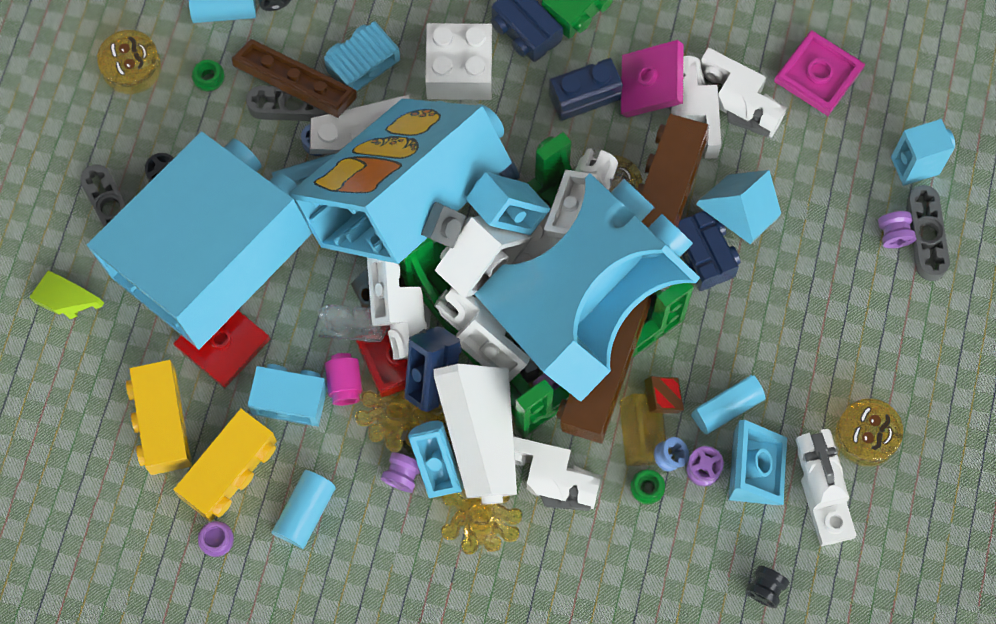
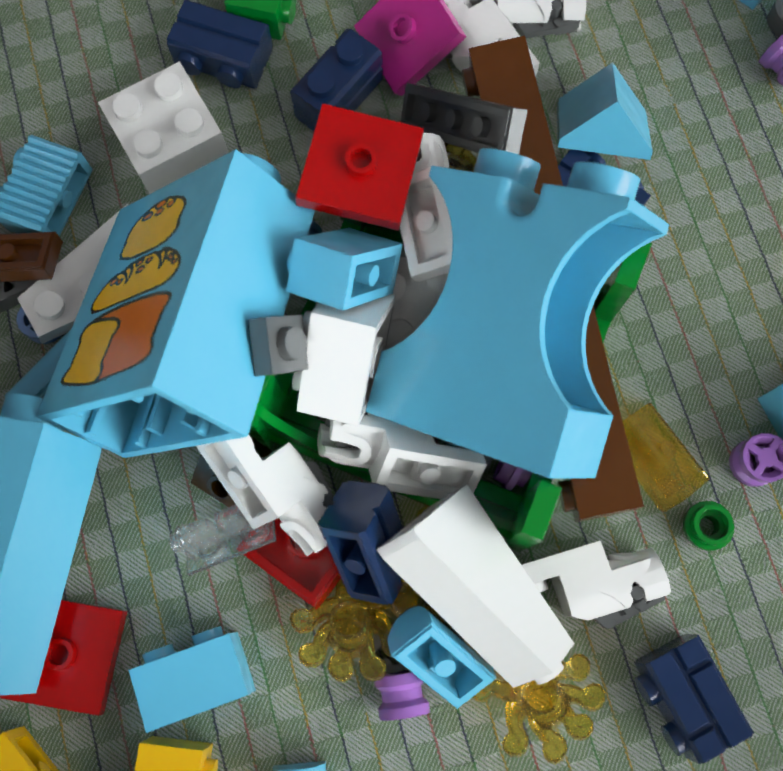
camera: 30 degrees left, 5 degrees up
(343, 379) = (253, 613): dark pink brick -> none
(550, 151) = (359, 167): none -> red plate
(570, 571) = (692, 699): none -> dark blue brick
(639, 155) = (464, 119): none -> dark grey tile
(664, 395) = (657, 400): reddish brown tile -> none
(679, 450) = (713, 468): medium blue bush -> none
(728, 404) = (737, 367): medium azure brick -> none

